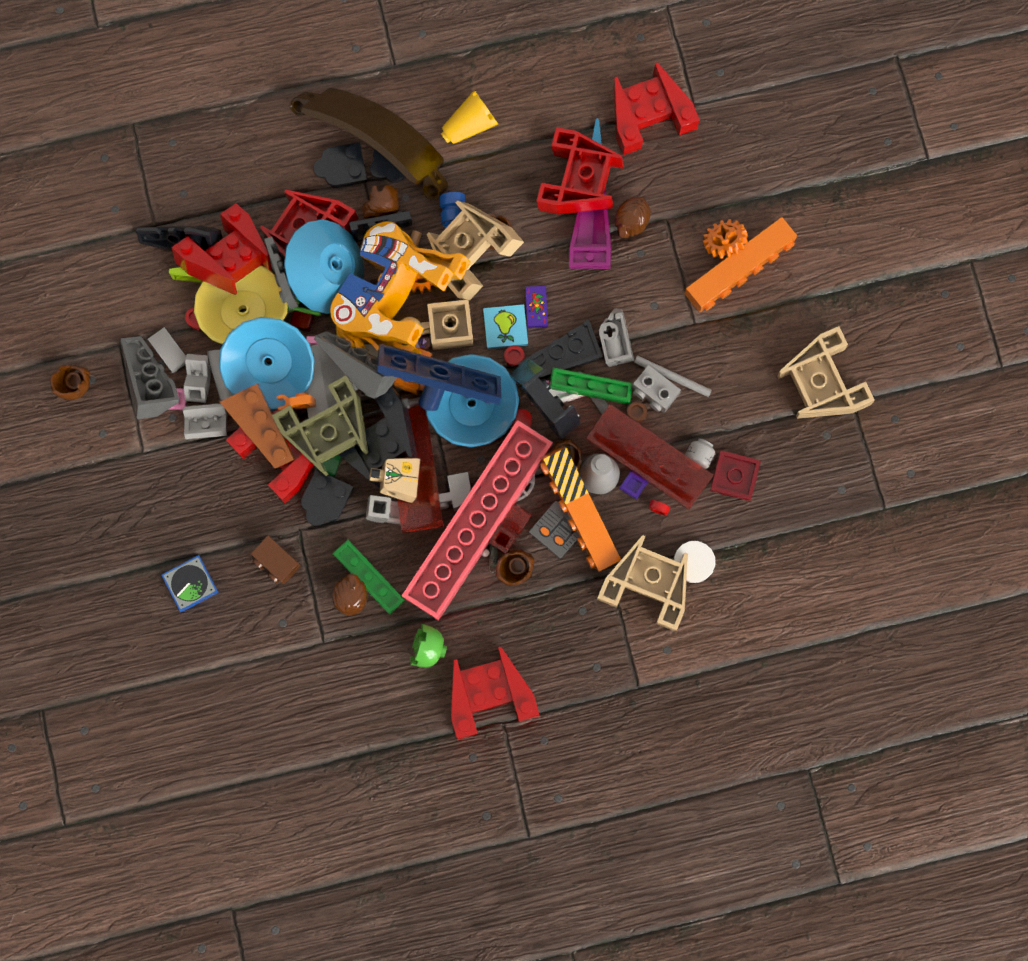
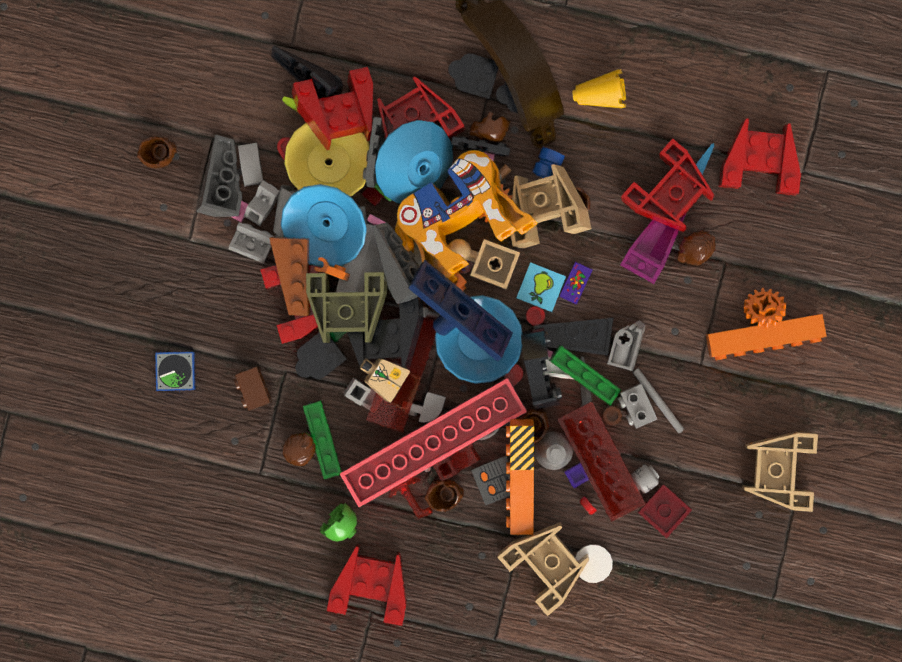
camera: 25 degrees right, 10 degrees up
(474, 582) = (405, 490): none -> clear red piece

